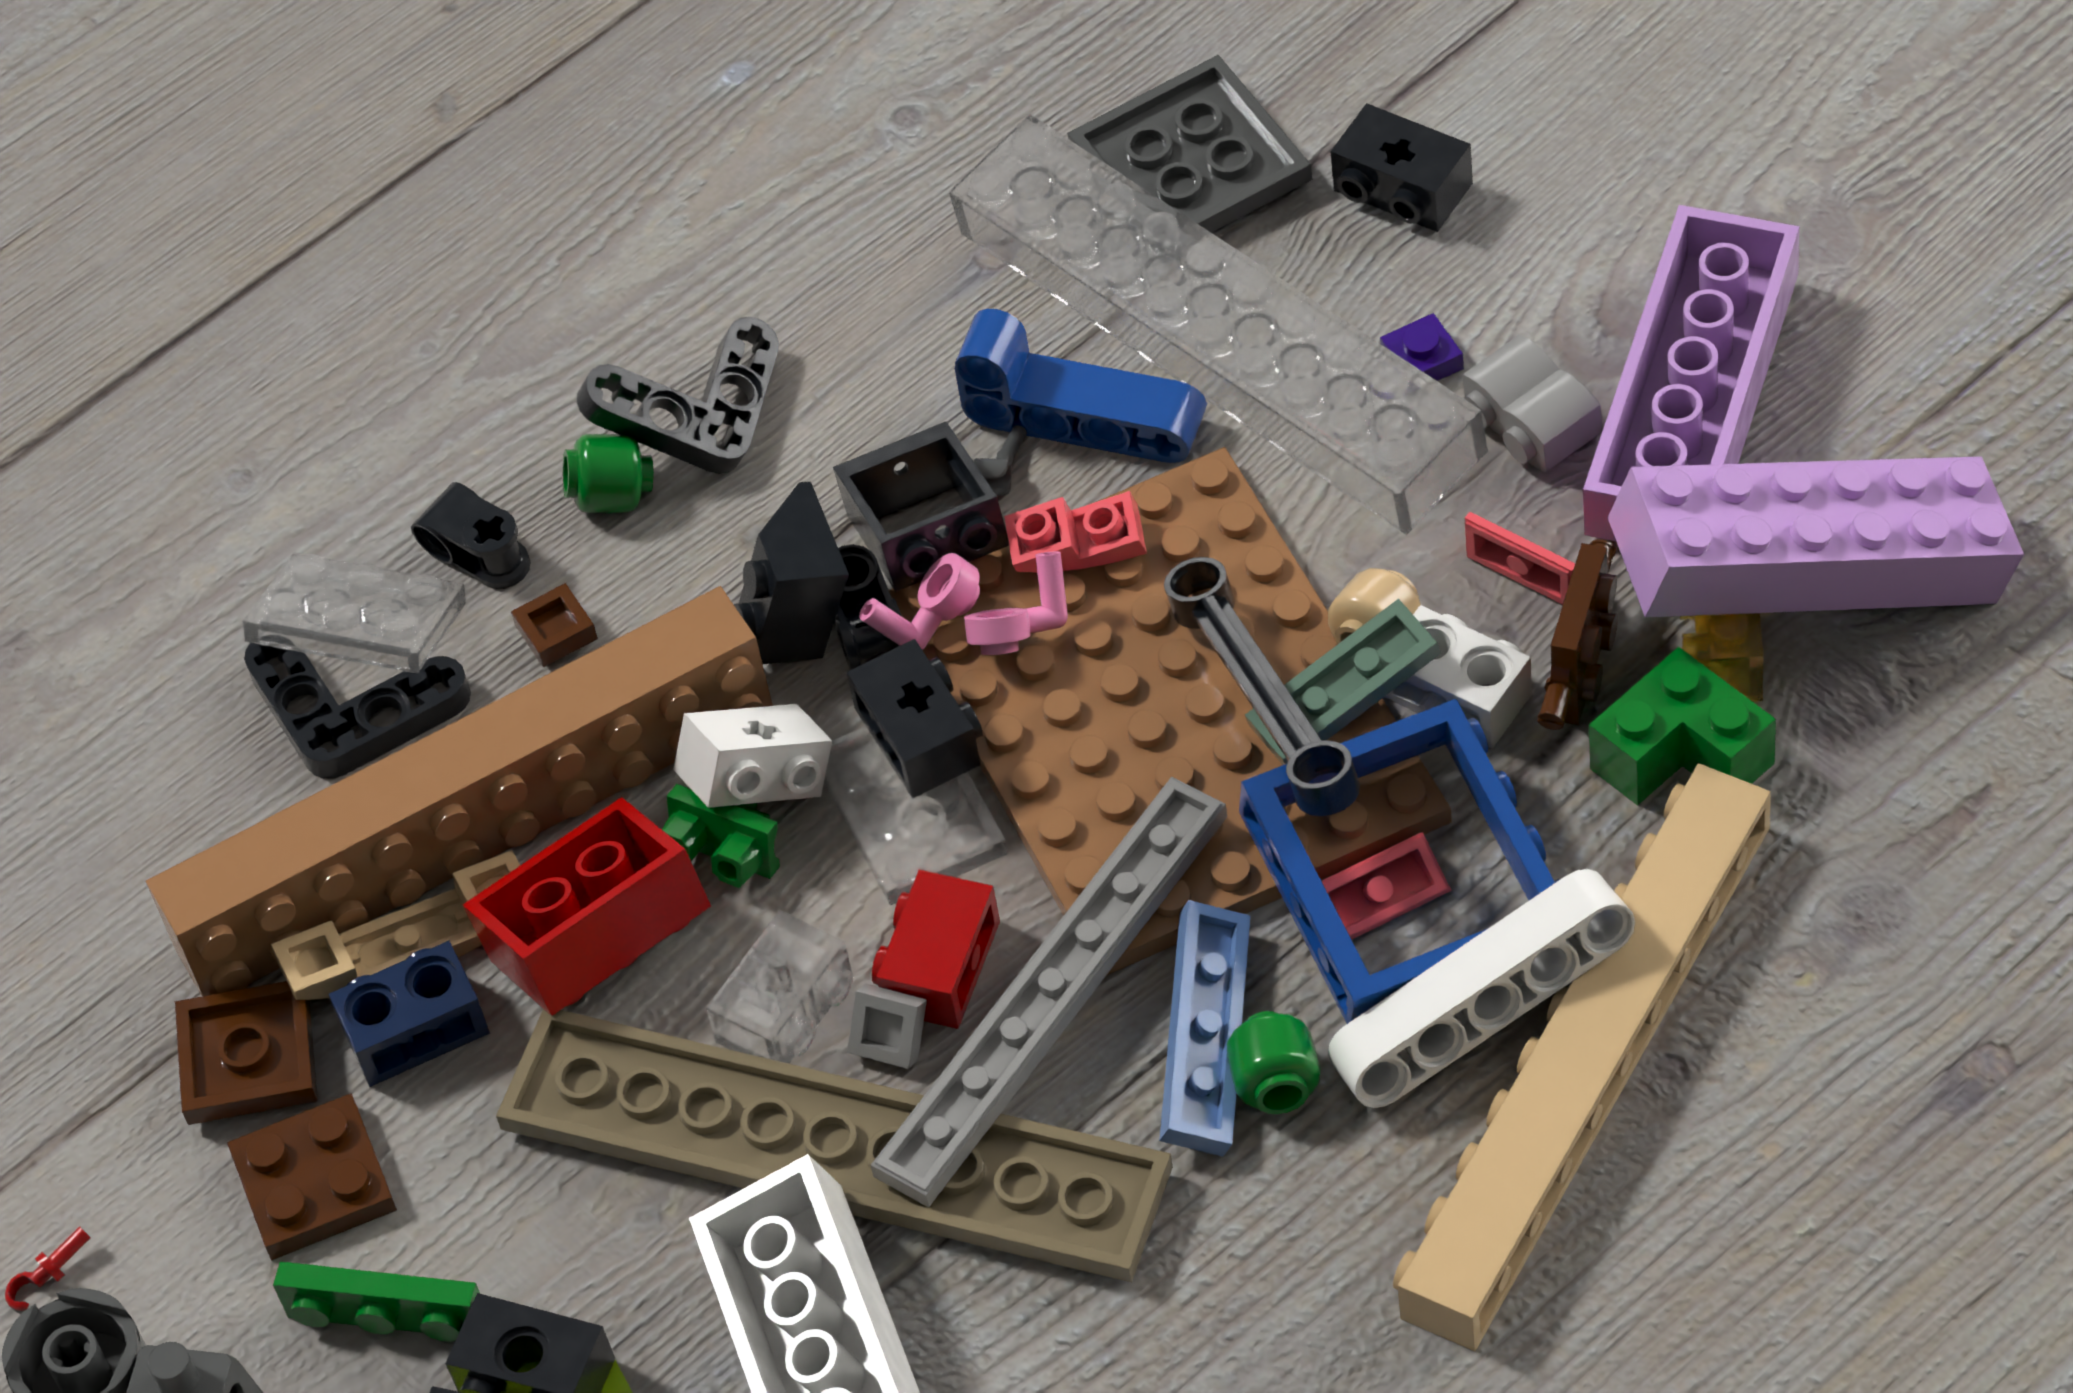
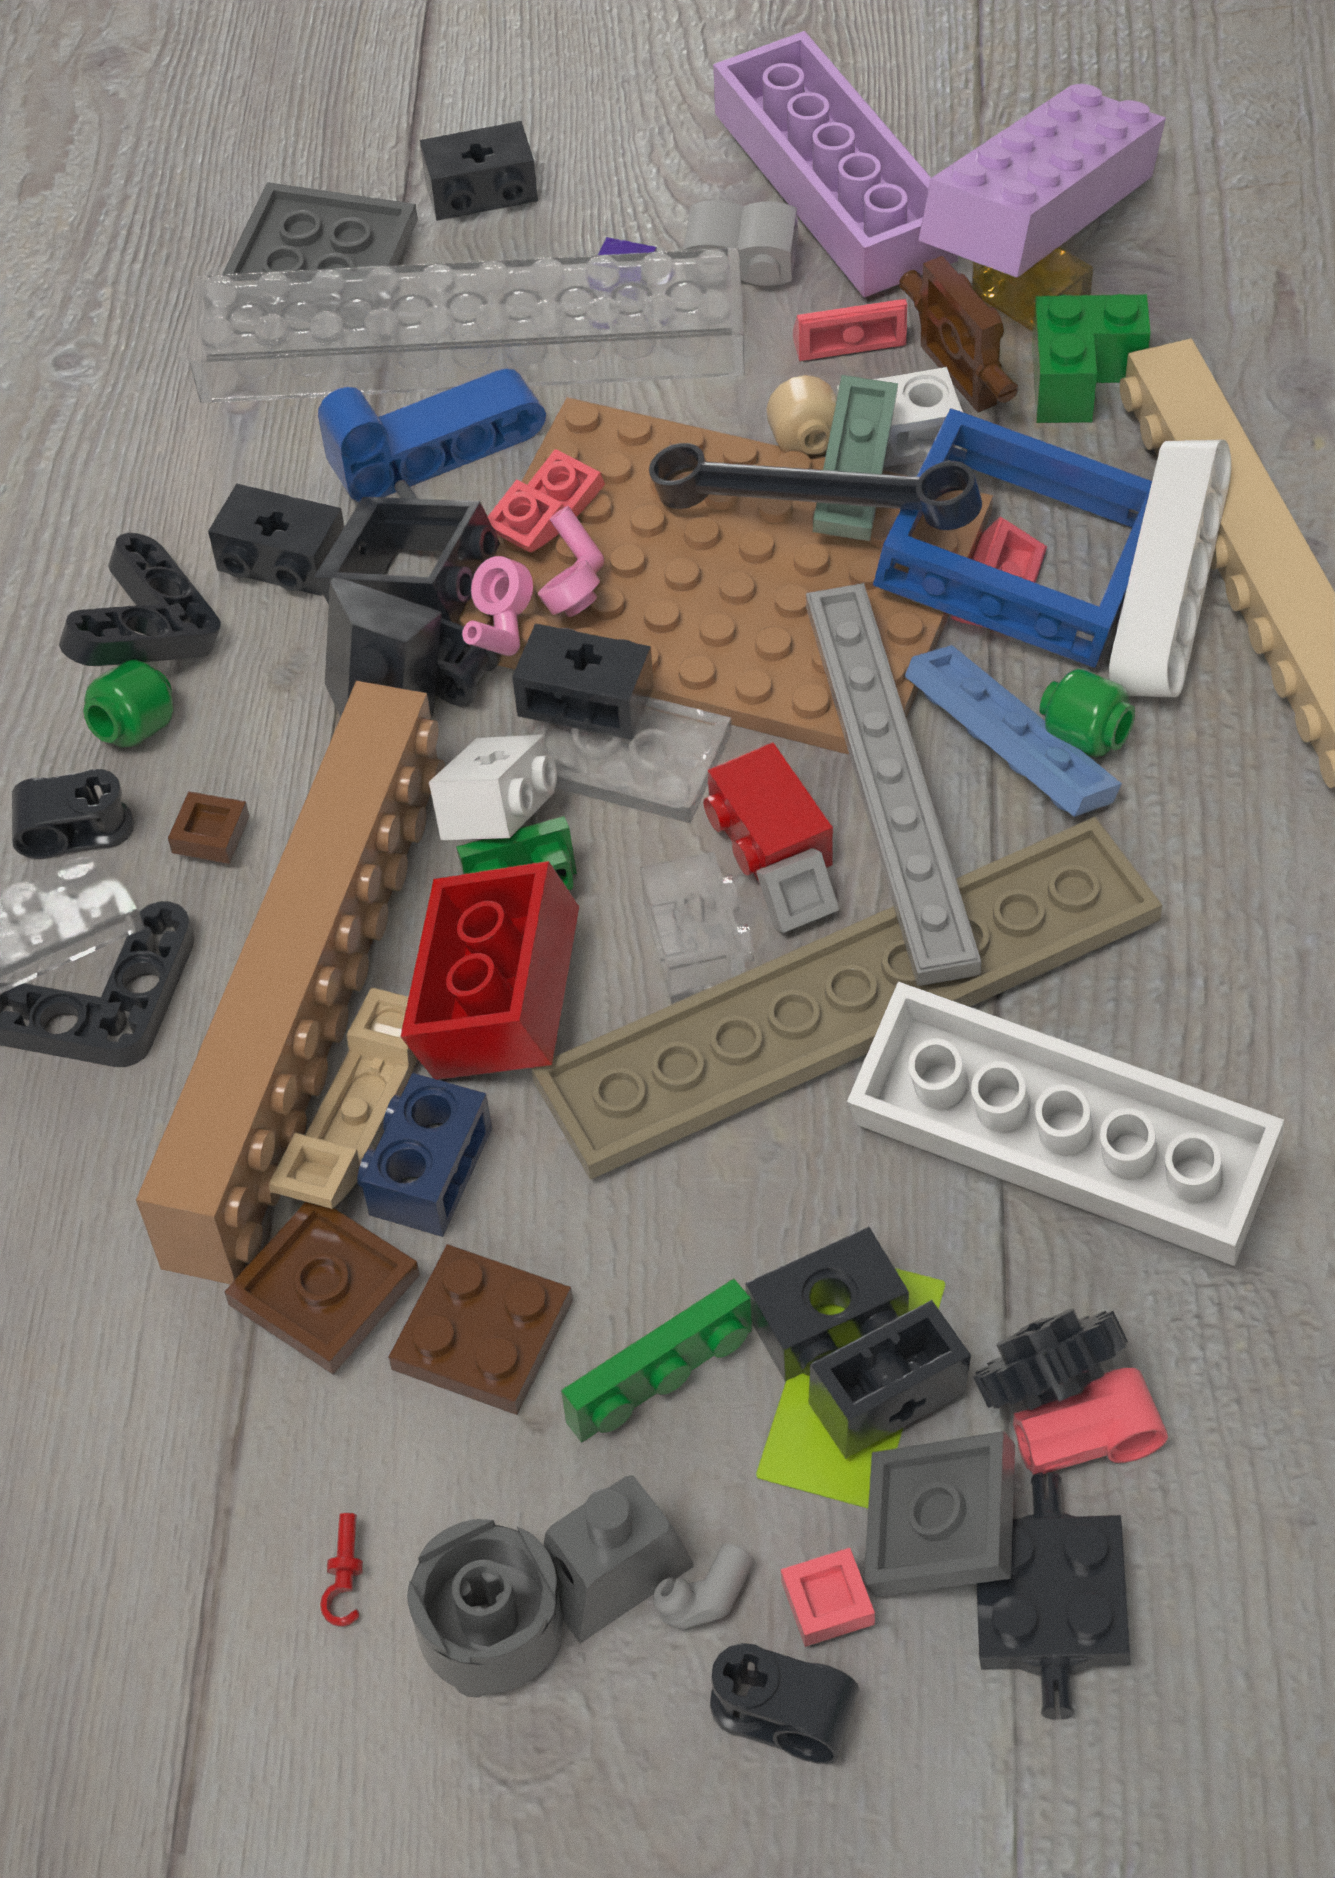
camera: 50 degrees left, 0 degrees up
(856, 401) = (274, 537): none -> black brick

